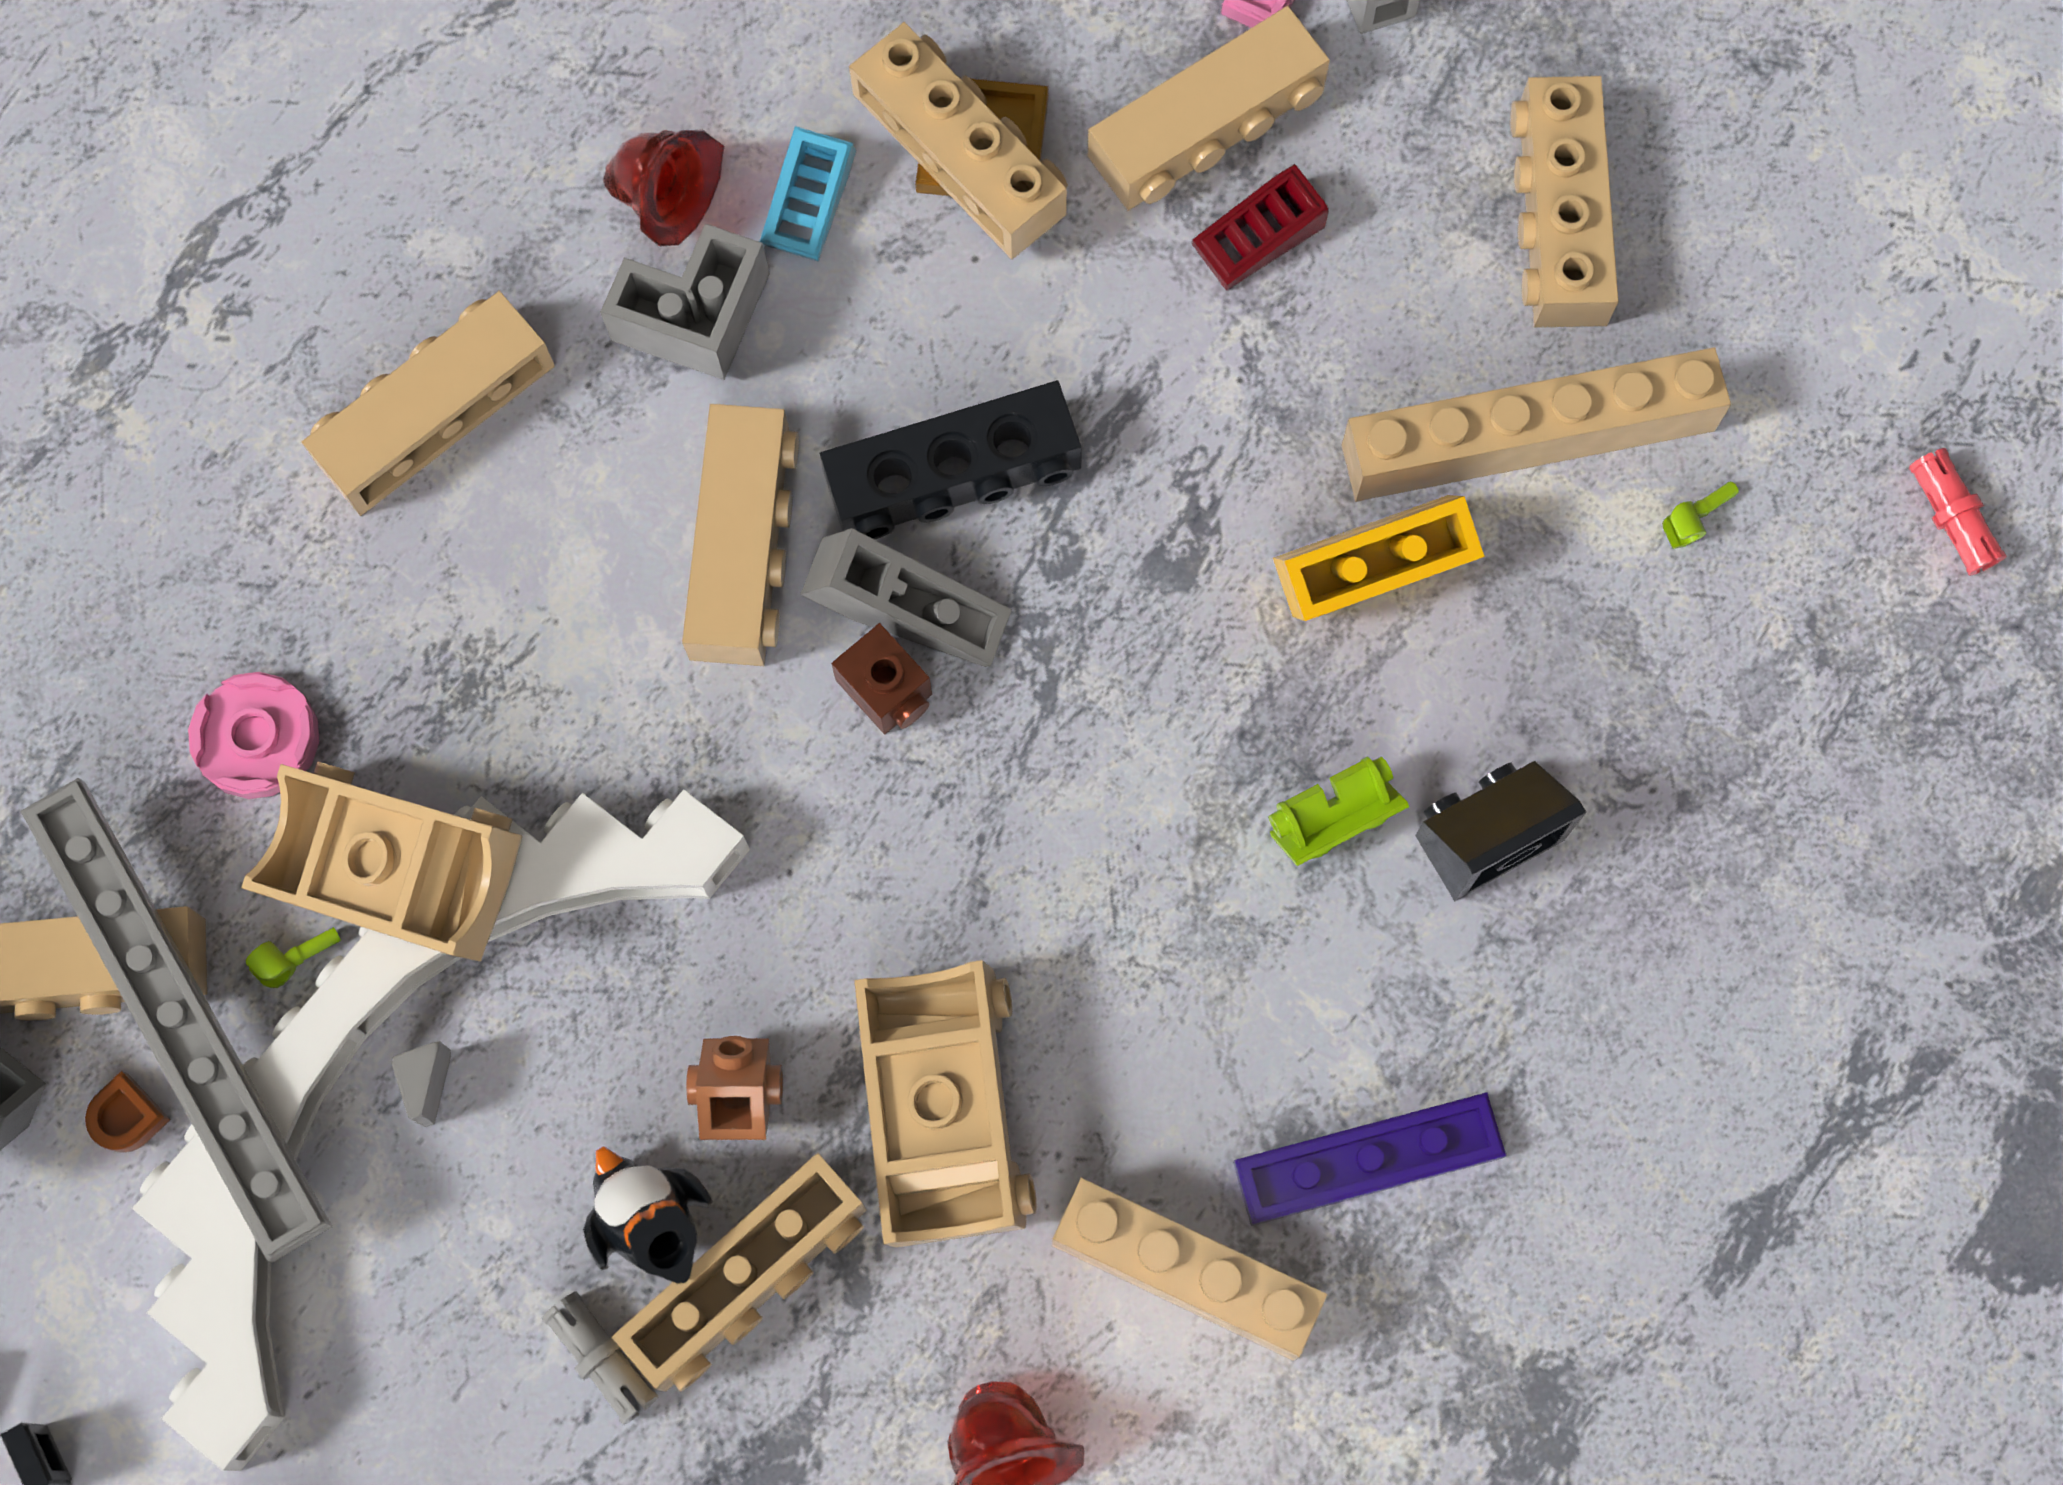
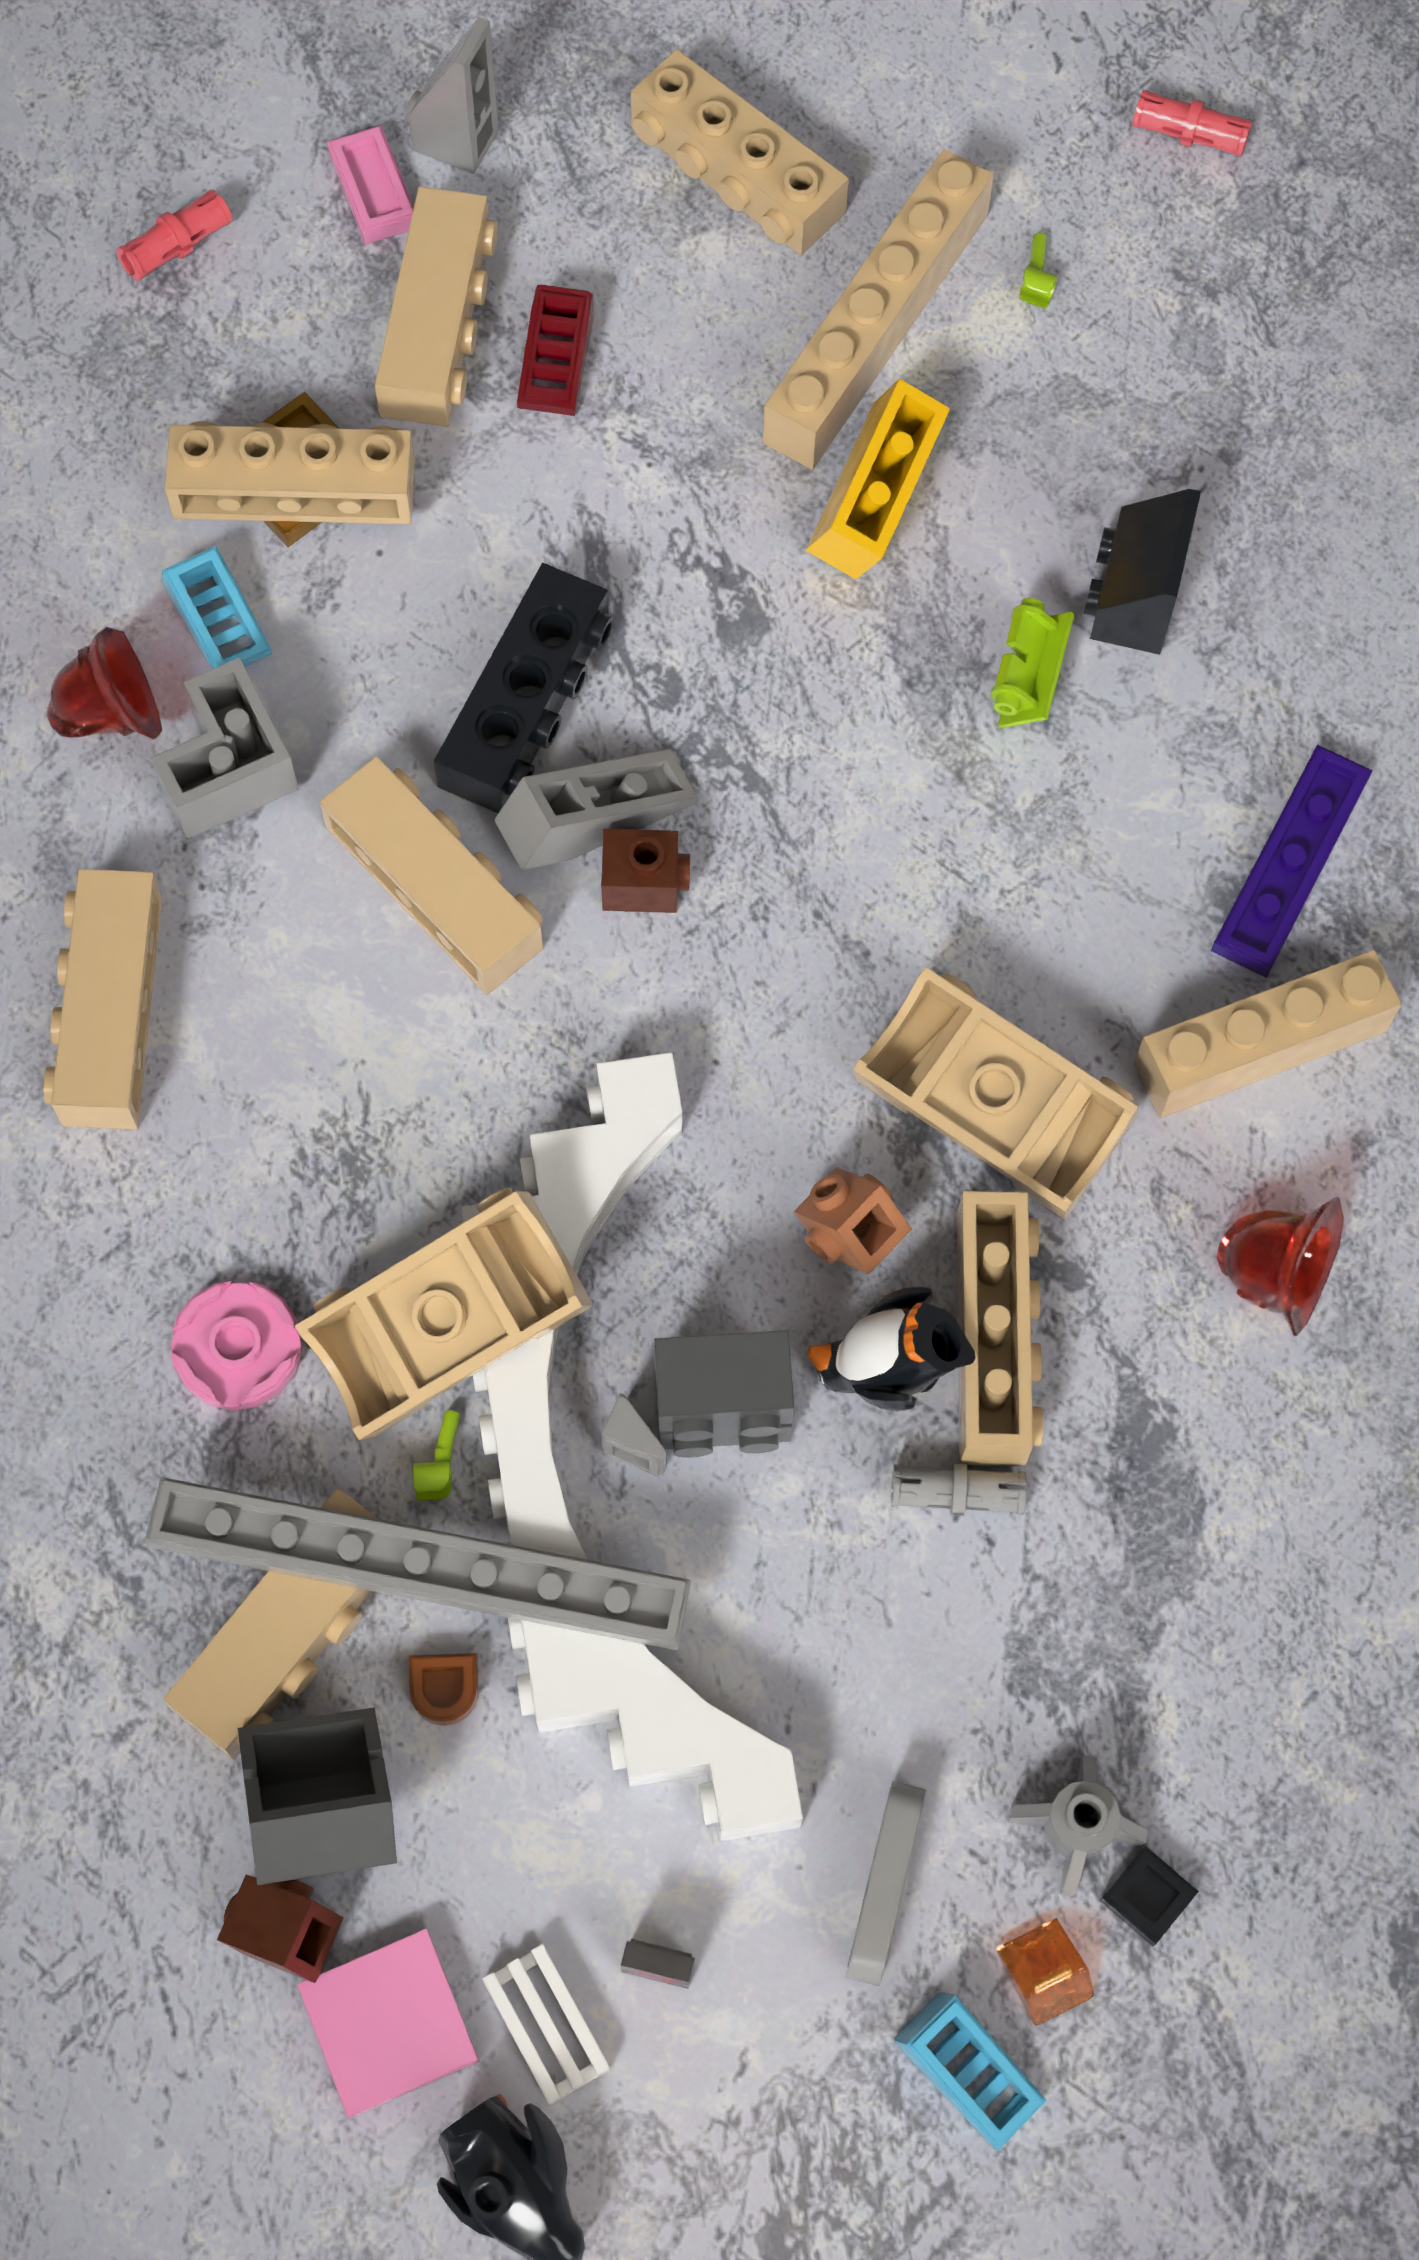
camera: 50 degrees left, 5 degrees down
(504, 1115) = (724, 1392): none -> dark grey piece

